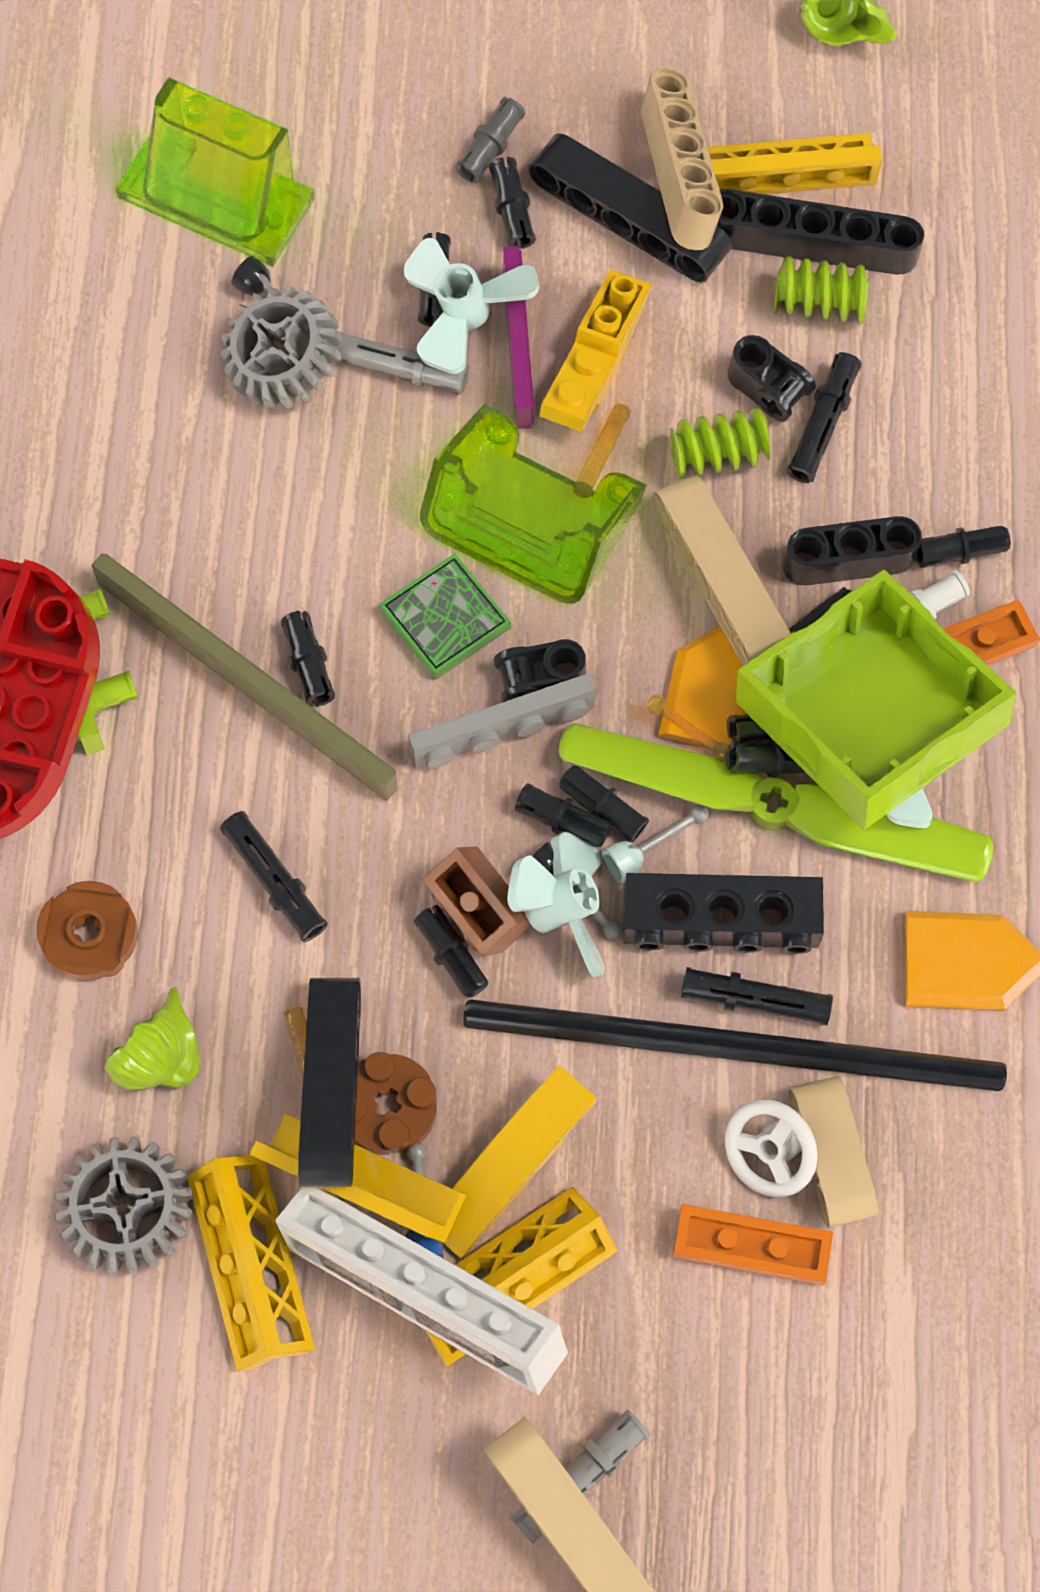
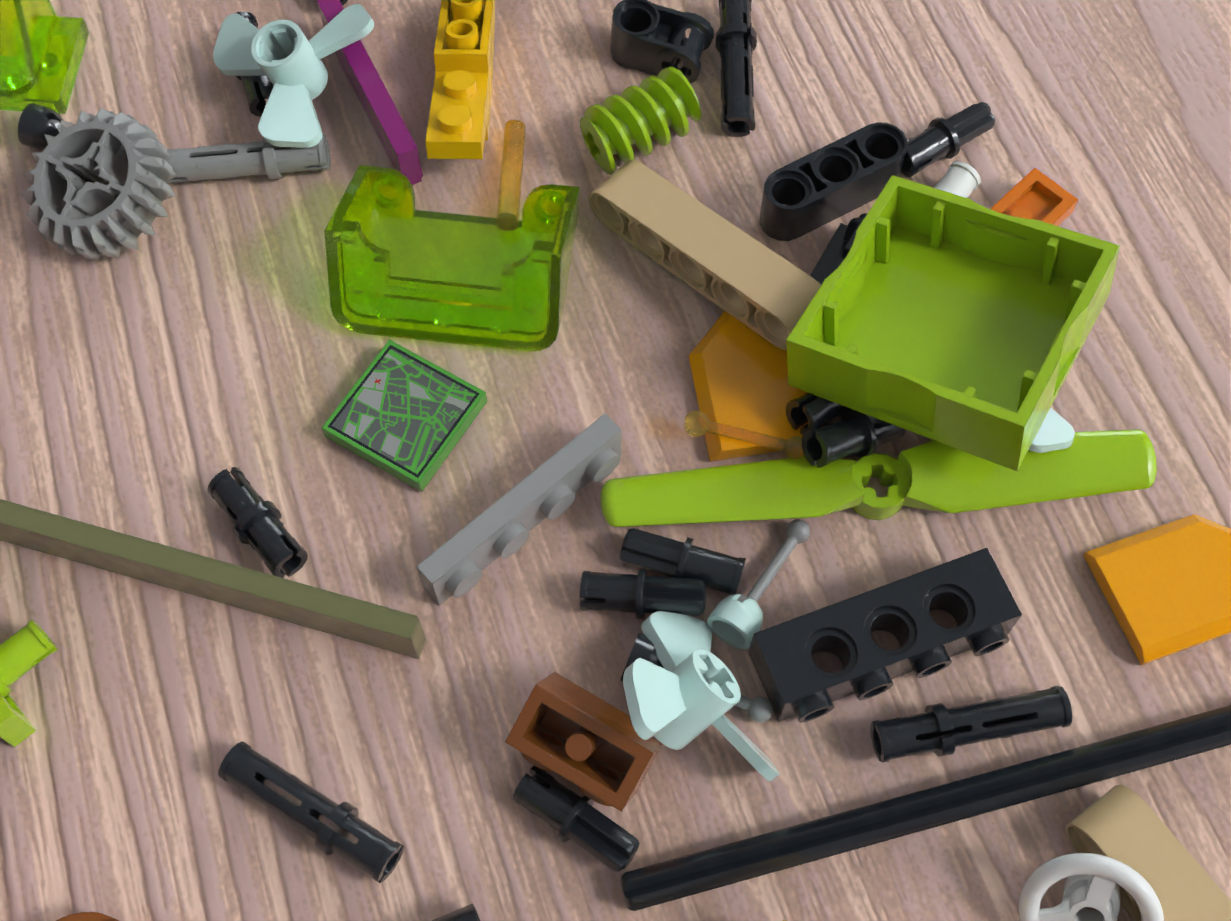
camera: 20 degrees left, 5 degrees down
(537, 666) = (536, 429): black piece -> none

